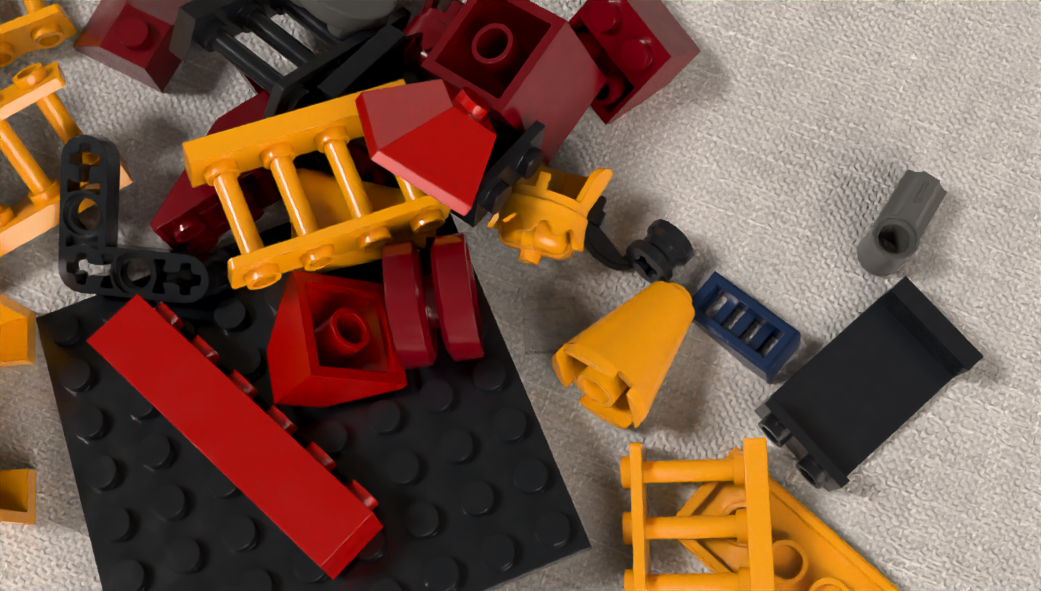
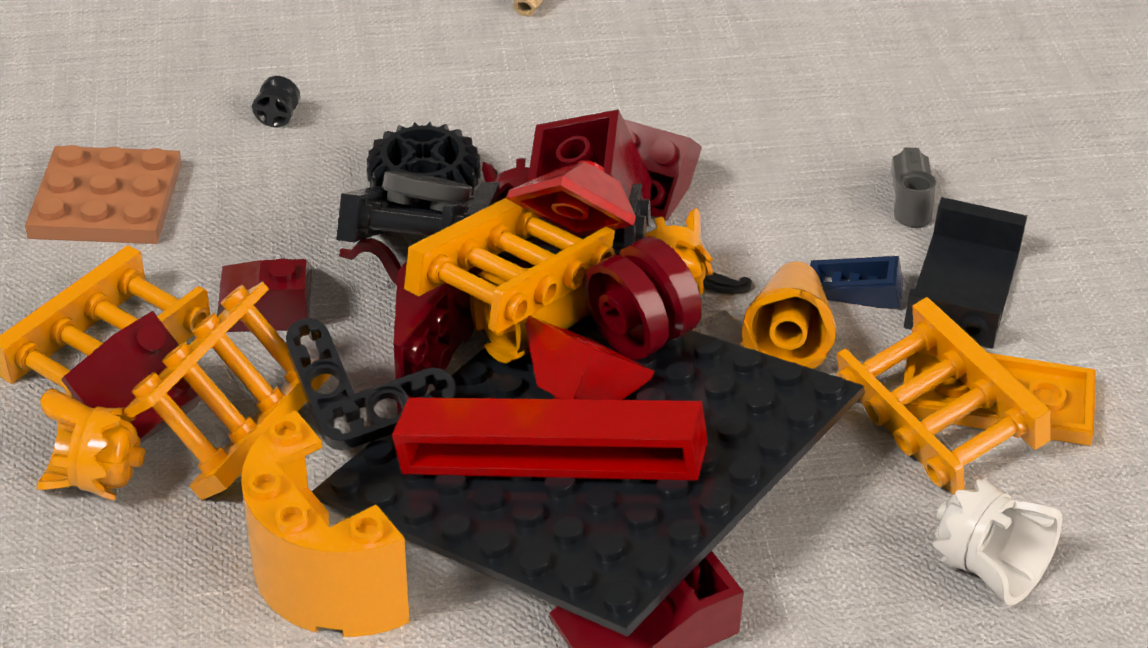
camera: 30 degrees left, 35 degrees down
(659, 251) = (768, 248): black wheel -> none

